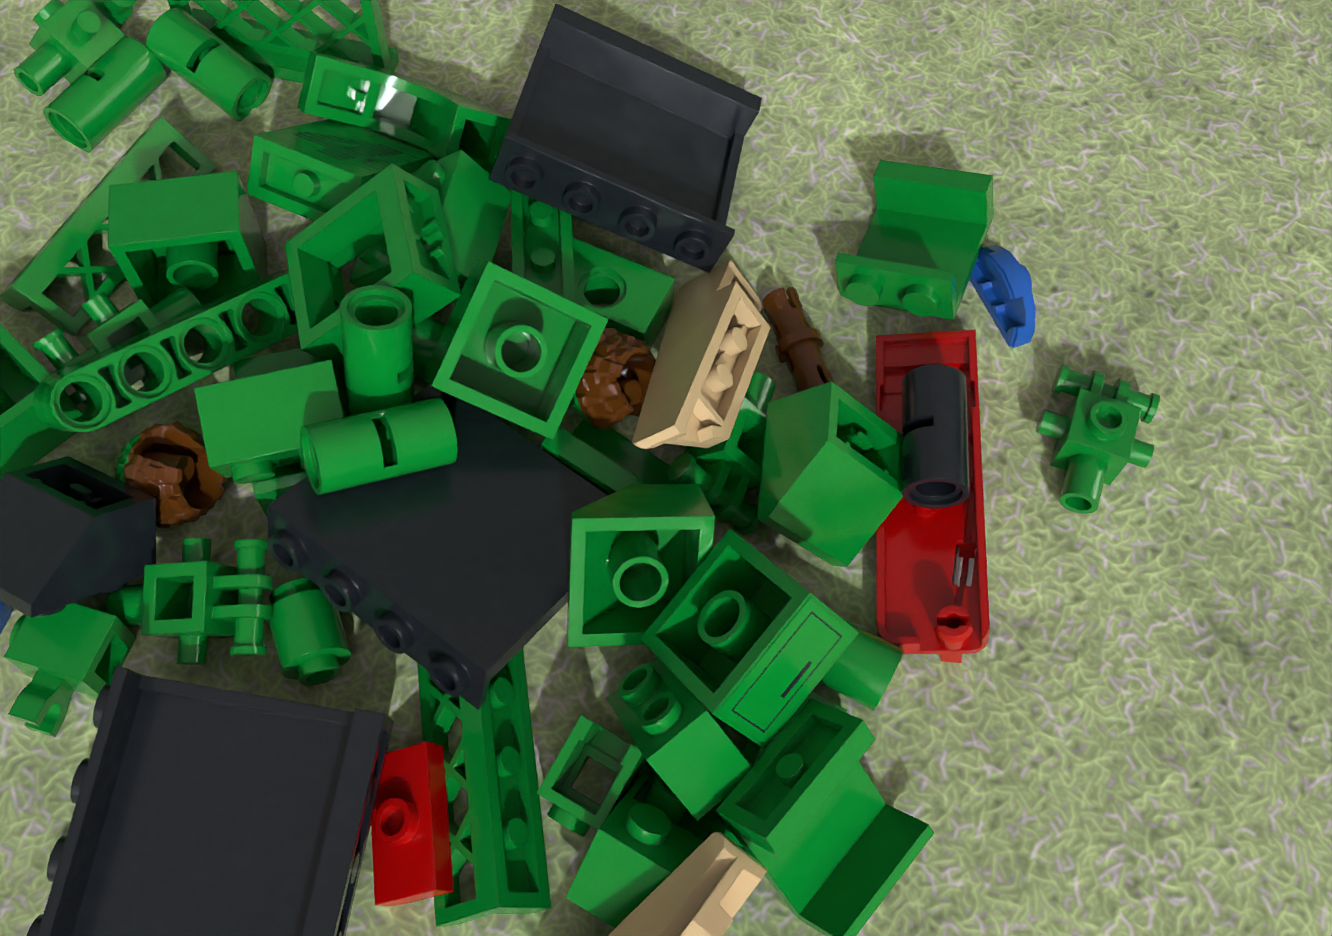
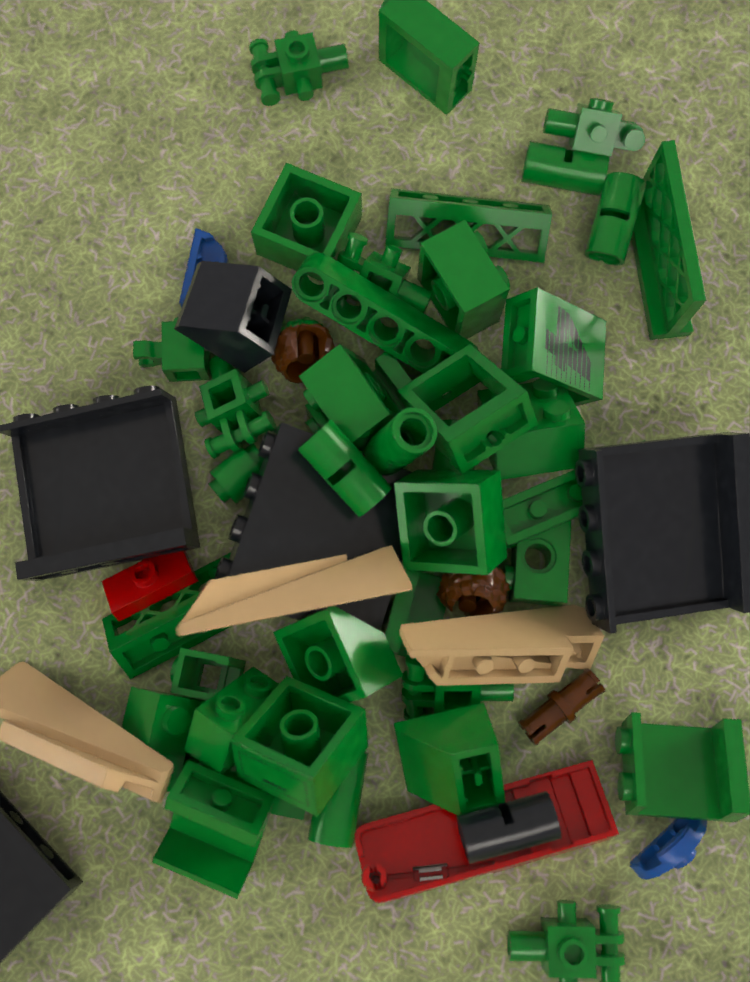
camera: 75 degrees right, 15 degrees up
(402, 108) = (638, 367): green arch -> none
(522, 574) = (294, 590): none -> tan wedge

